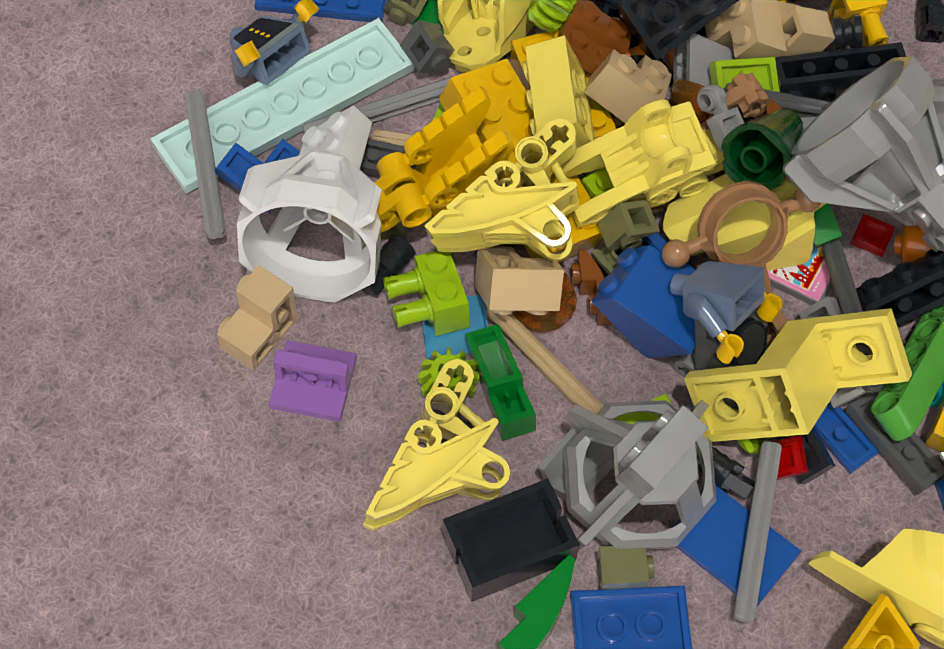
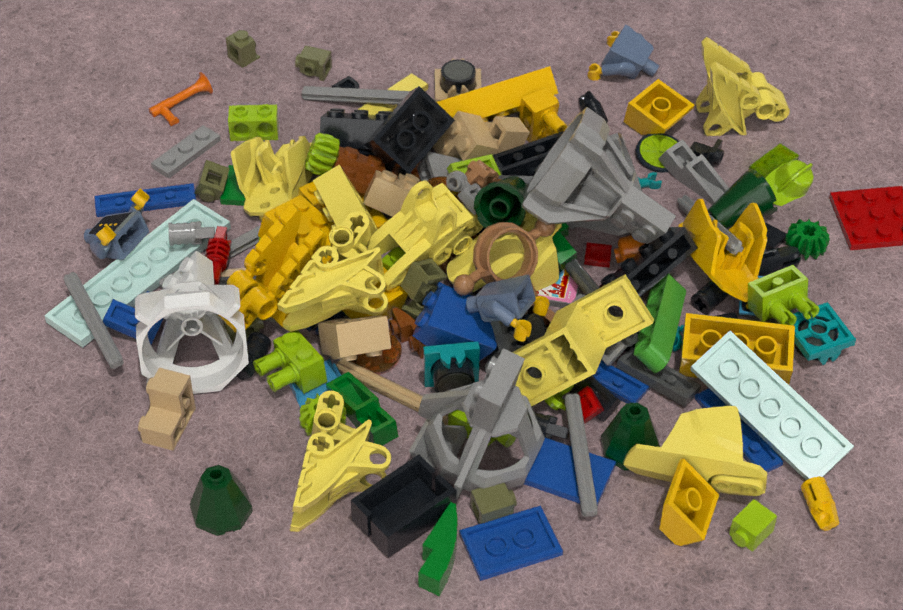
camera: 15 degrees left, 15 degrees down
(287, 468) = (220, 502): none -> dark green cone
(312, 380) = (220, 444): medium lavender bracket -> none
(357, 70) = (189, 233): none -> light grey hinge
(384, 109) = (218, 252): none -> red hinge
(434, 50) = (242, 210): dark grey brick -> none
(629, 361) = (451, 365): none -> piece
(830, 522) = (629, 427): none -> dark green cone
(847, 31) = (537, 127): black wheel -> none

